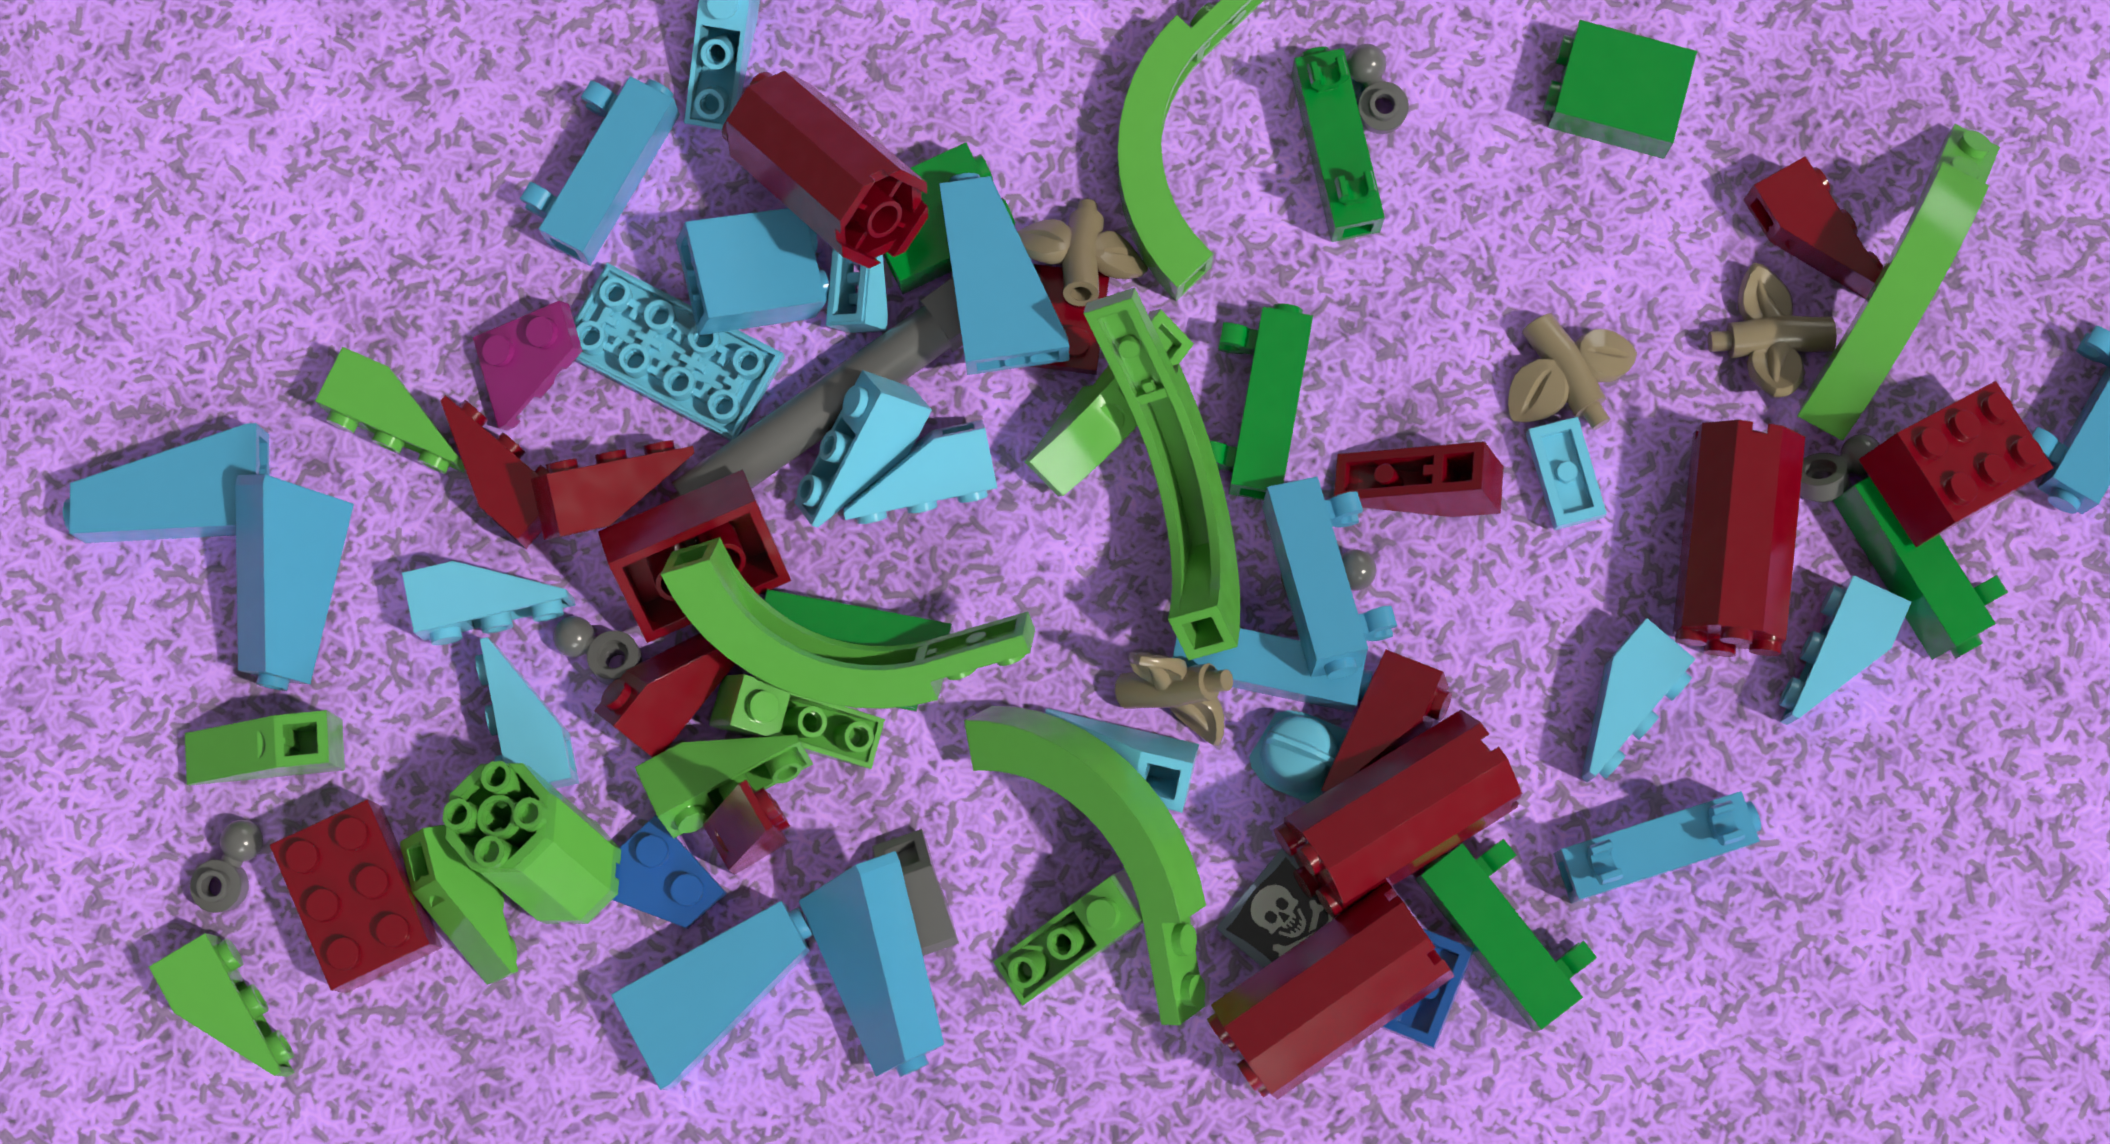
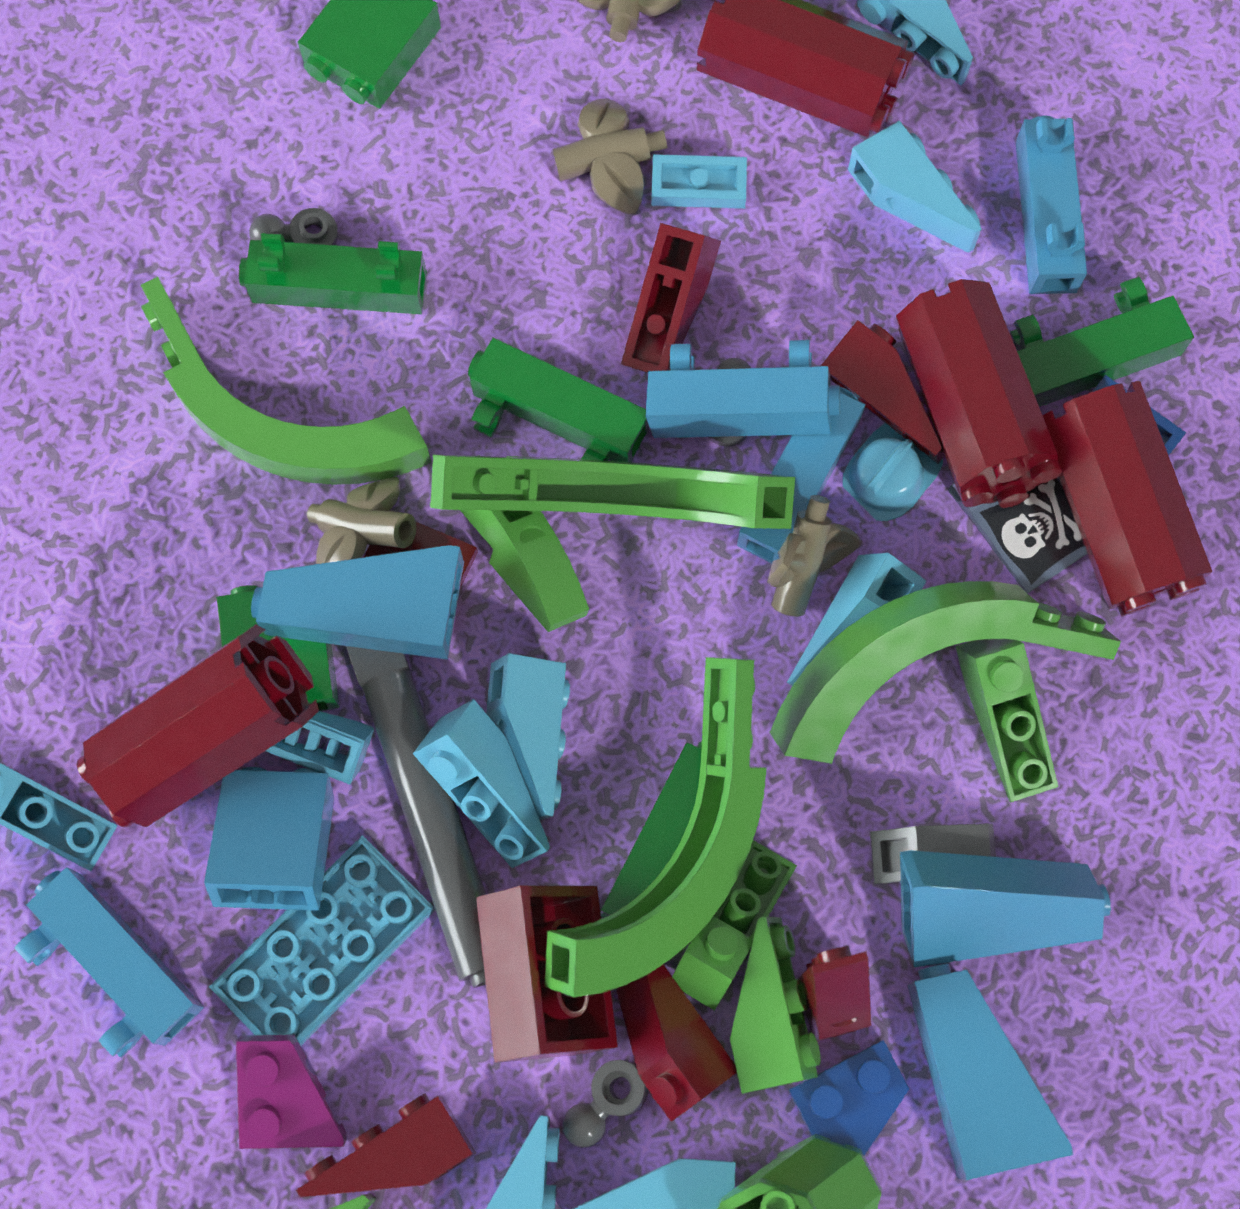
camera: 75 degrees left, 5 degrees down
(596, 495) = (455, 1053): dark red slope -> none

